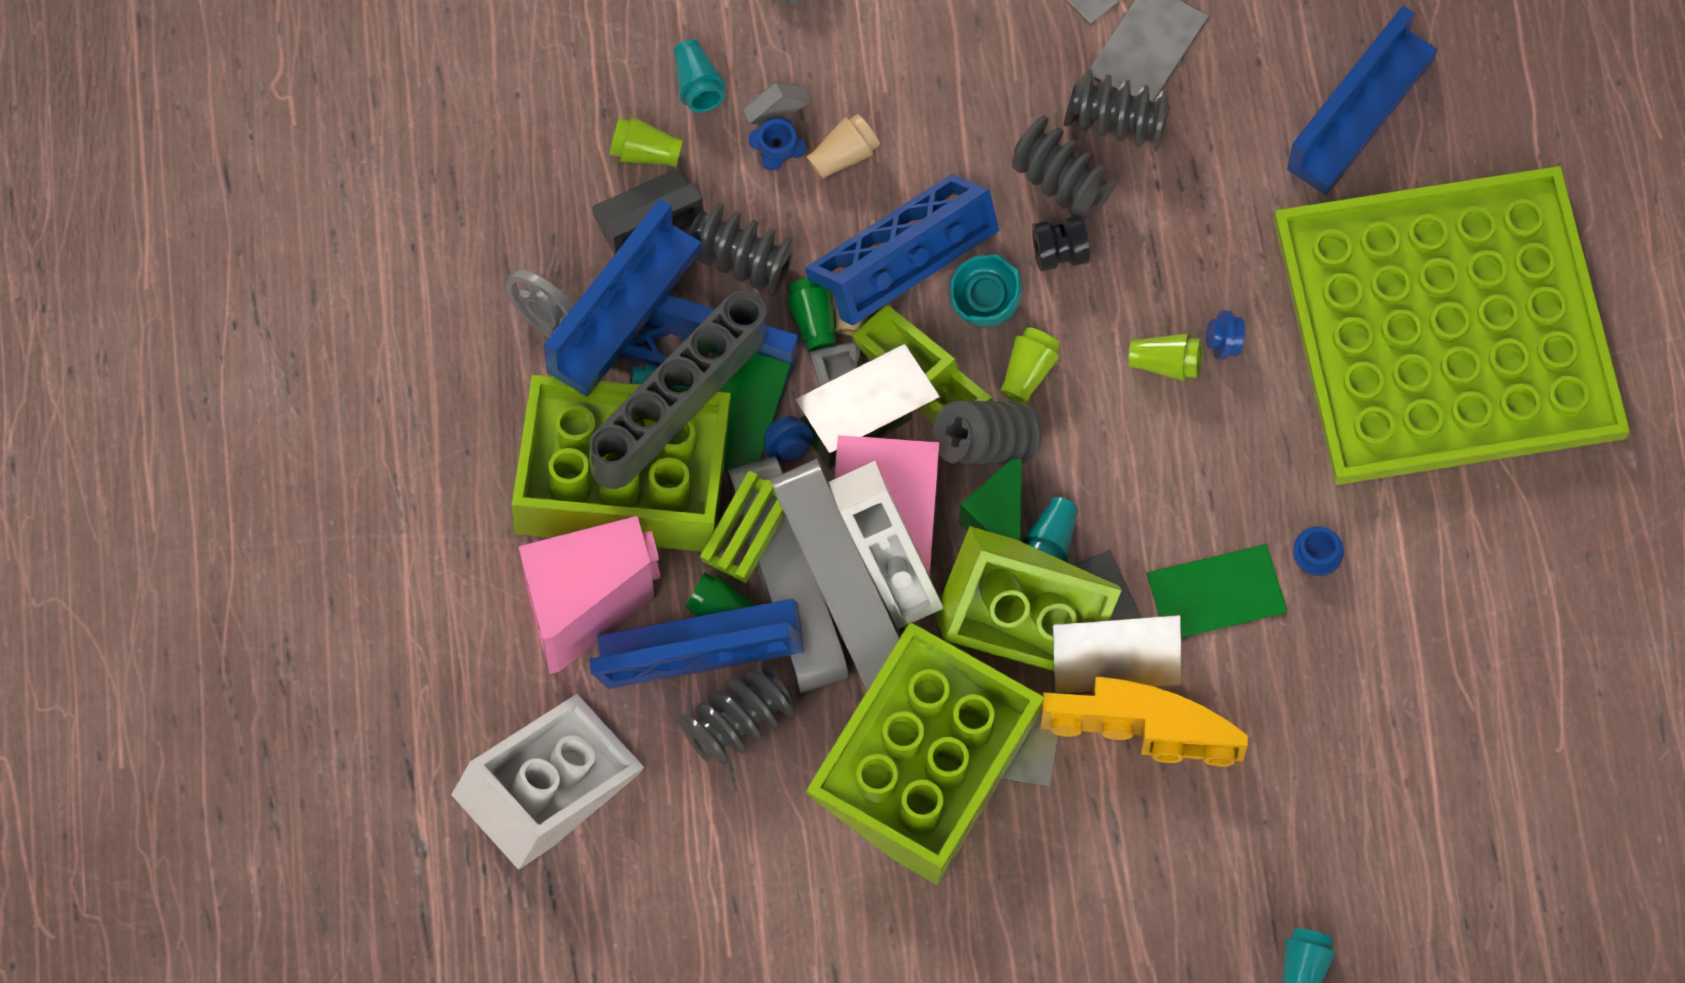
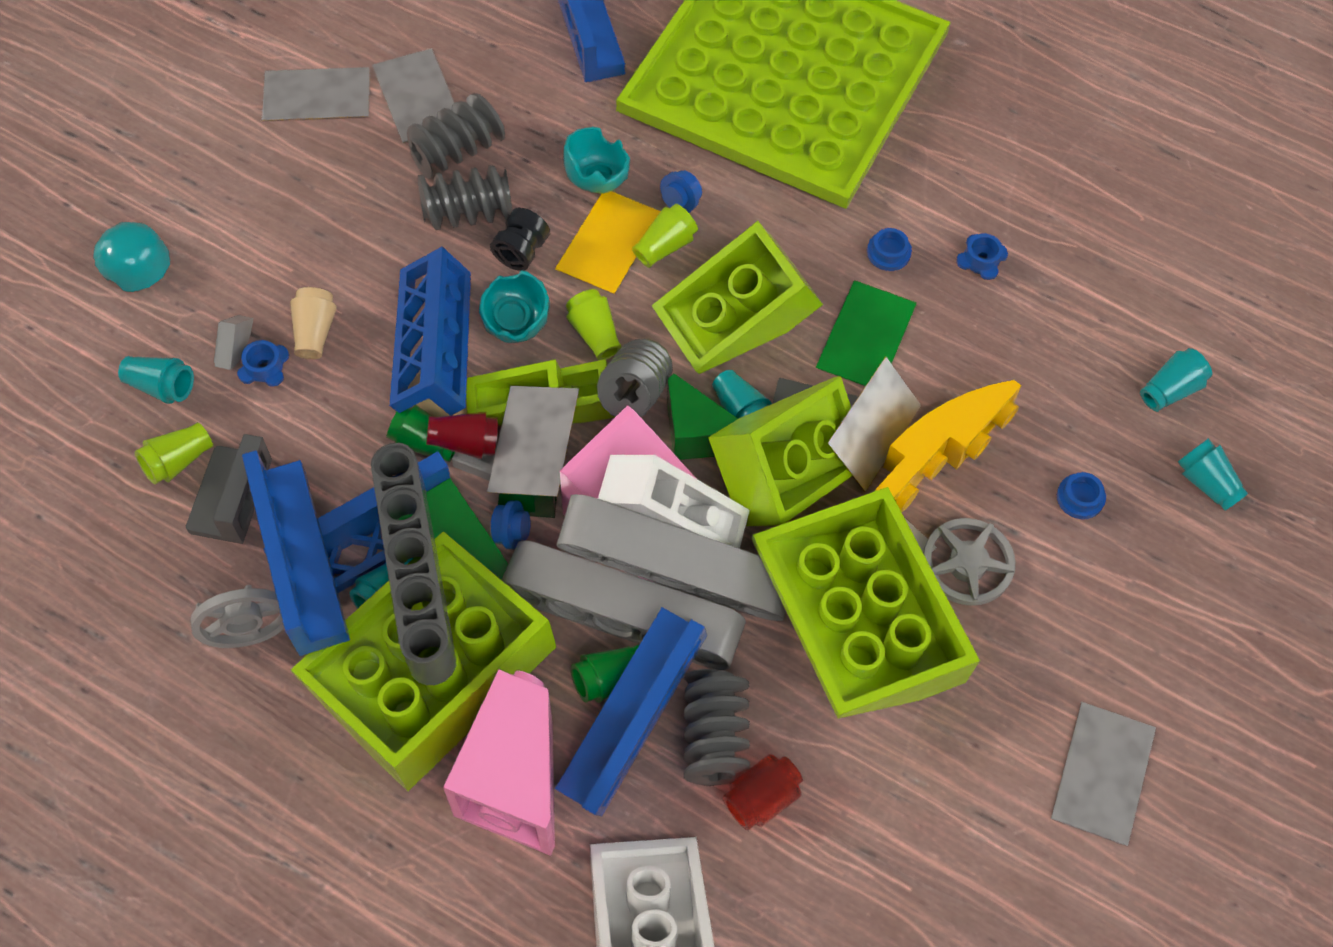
camera: 55 degrees left, 5 degrees down
(715, 788) = (763, 791): none -> clear red brick
(729, 520) = (551, 561): lime tile -> none
(742, 249) = (328, 440): dark grey piece -> none
(830, 342) = (464, 433): none -> dark red cone
(1054, 818) = (971, 560): none -> light grey wheel
(1142, 308) = (604, 242): none -> yellow sticker
(1151, 461) = (736, 301): none -> lime slope
(1192, 241) = (595, 162): none -> teal hair
(1193, 870) = (1081, 495): none -> blue plate
(1381, 620) = (986, 246): none -> blue plate
(1382, 879) = (1177, 379): none -> teal cone

